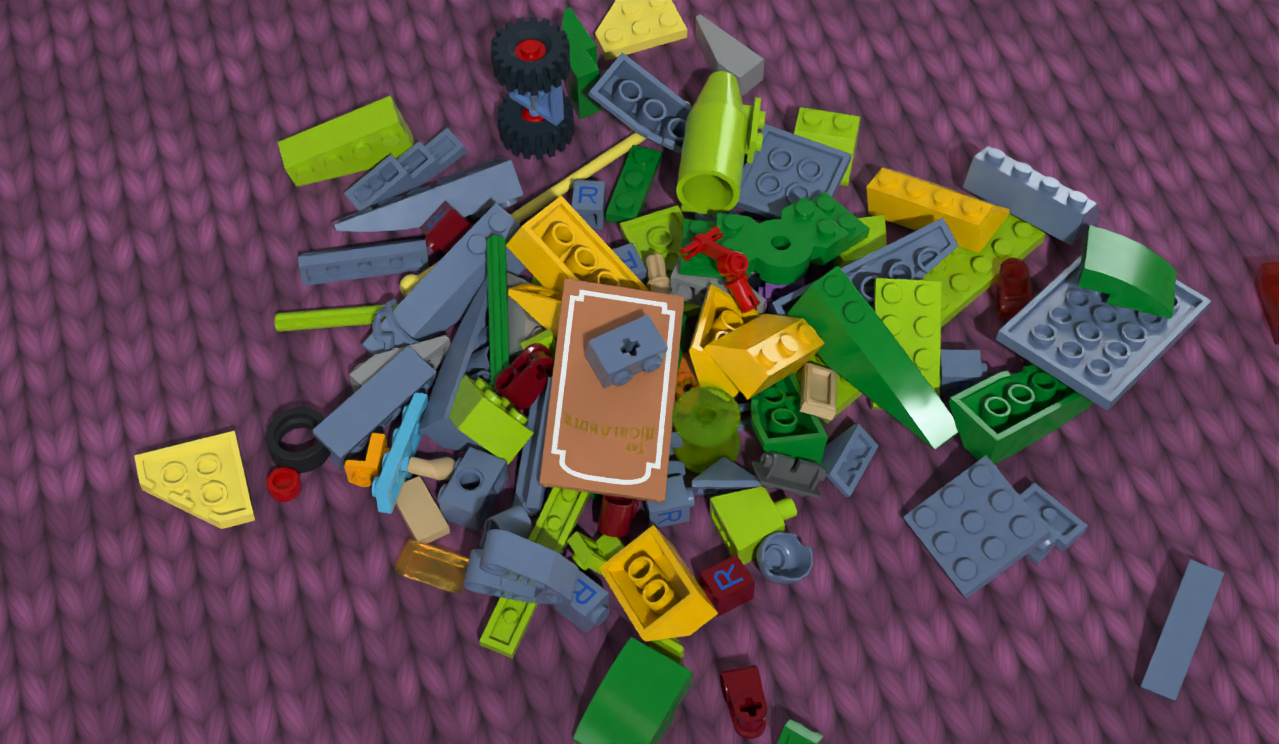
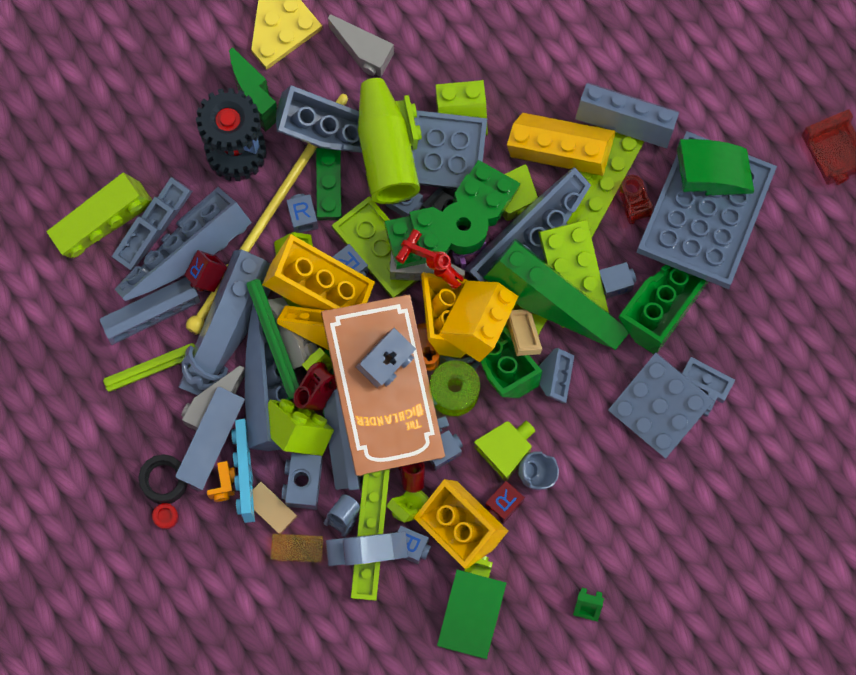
camera: 20 degrees left, 20 degrees up
(200, 478) = (104, 532): light yellow plate -> none
(436, 469) = (270, 474): tan arm -> none
(657, 274) = (380, 275): tan axle -> none
(722, 479) = (477, 418): sand blue slope -> none
(745, 697) = (540, 579): dark red piece -> none
(776, 472) = (522, 406): dark grey hinge -> none
(1182, 631) = (816, 441): sand blue slope -> none

